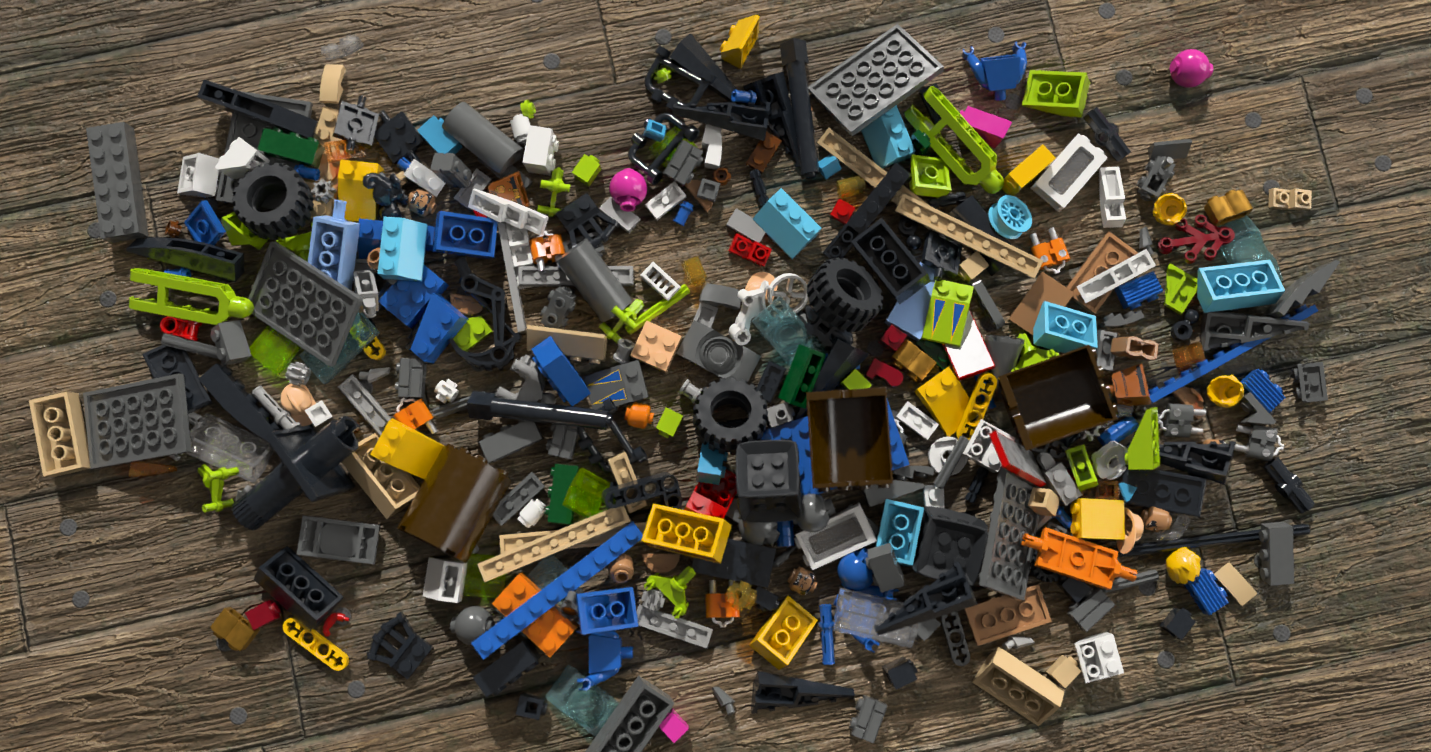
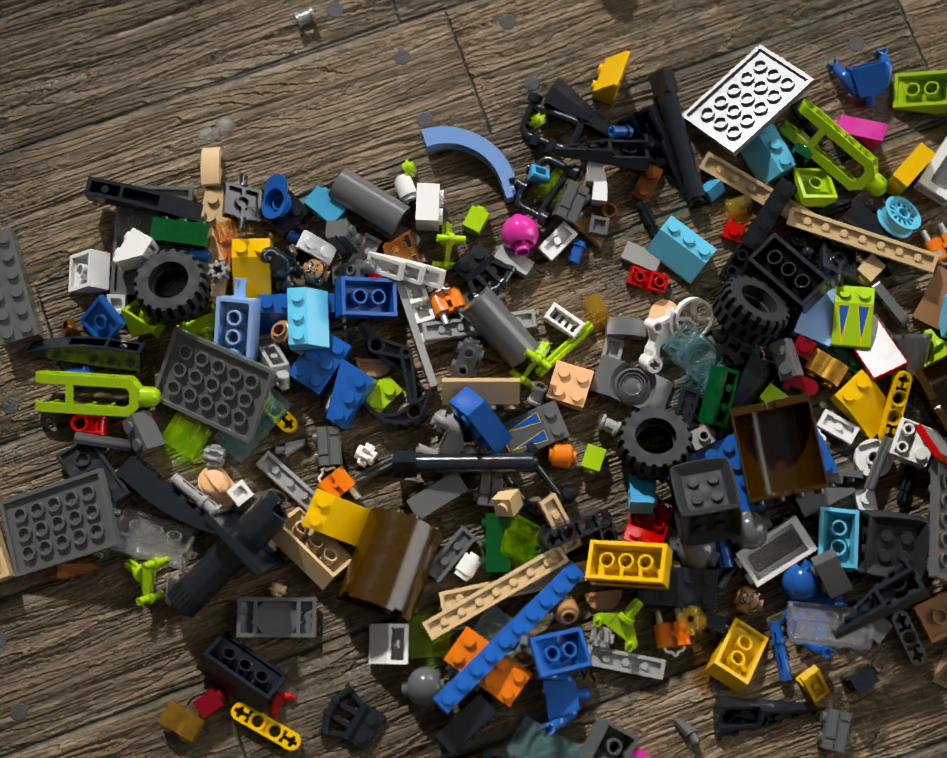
camera: 10 degrees left, 5 degrees down
(222, 208) = (118, 301): none -> white plate
(344, 512) = (277, 589): none -> tan plate
(389, 123) = (276, 197): none -> blue piece
(458, 204) = (354, 268): none -> dark grey plate
(577, 455) = (507, 502): none -> tan brick
(581, 85) = (464, 140): none -> medium blue arch
(854, 670) = (813, 683): none -> yellow slope
(873, 348) = (786, 359): none -> dark grey brick

